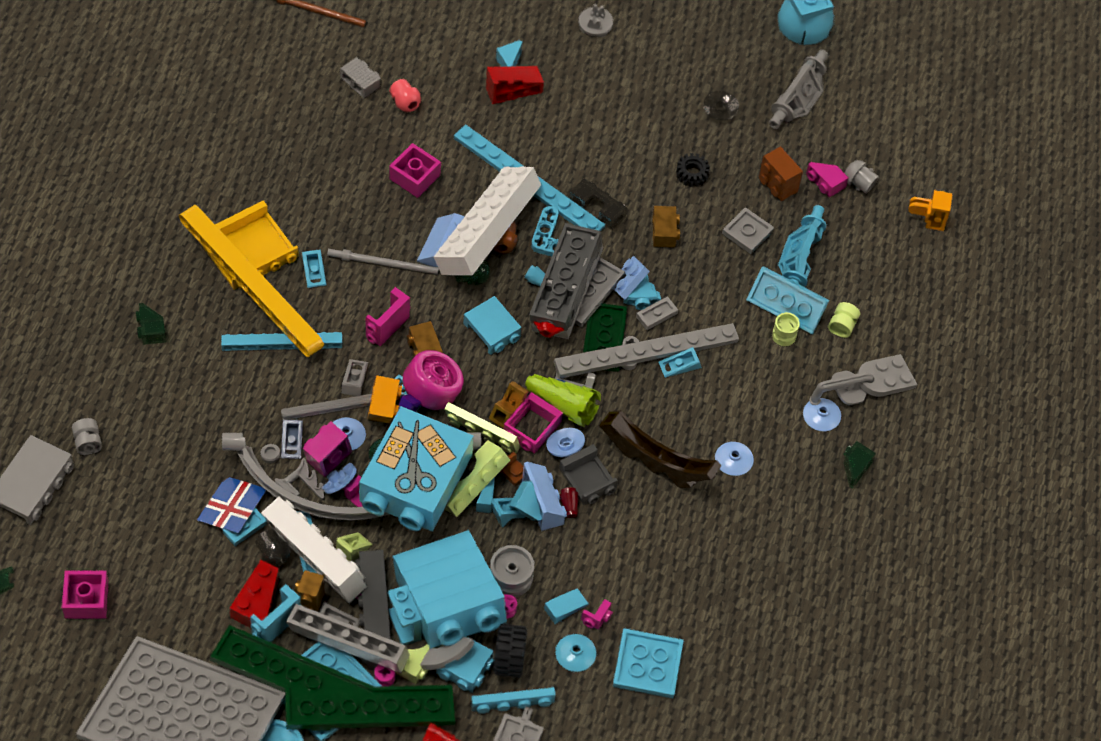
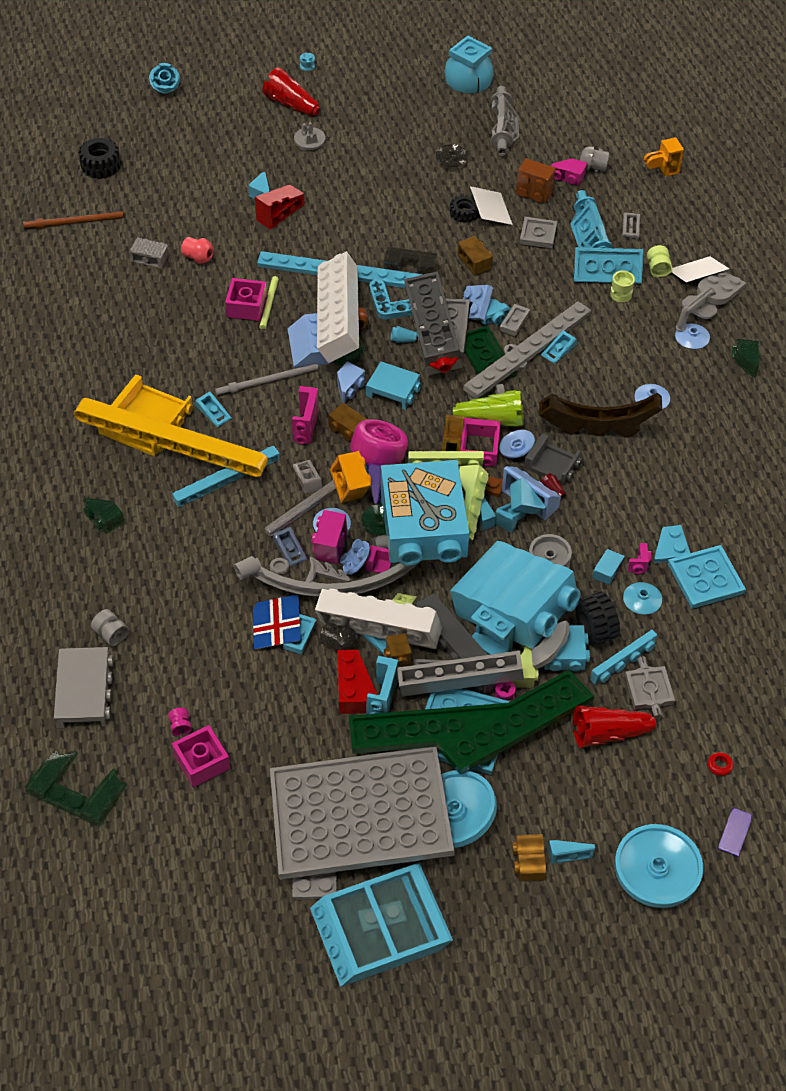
camera: 25 degrees left, 5 degrees down
(90, 552) = (179, 720): none -> dark pink wheel
(438, 182) = (272, 289): none -> yellowish green bar
(455, 300) = (349, 380): none -> light blue slope
(639, 615) = (671, 544): none -> medium azure wing
(721, 179) = (491, 205): none -> white sticker
(840, 277) = (630, 235): none -> light grey tile
(878, 346) = (698, 269): none -> white sticker

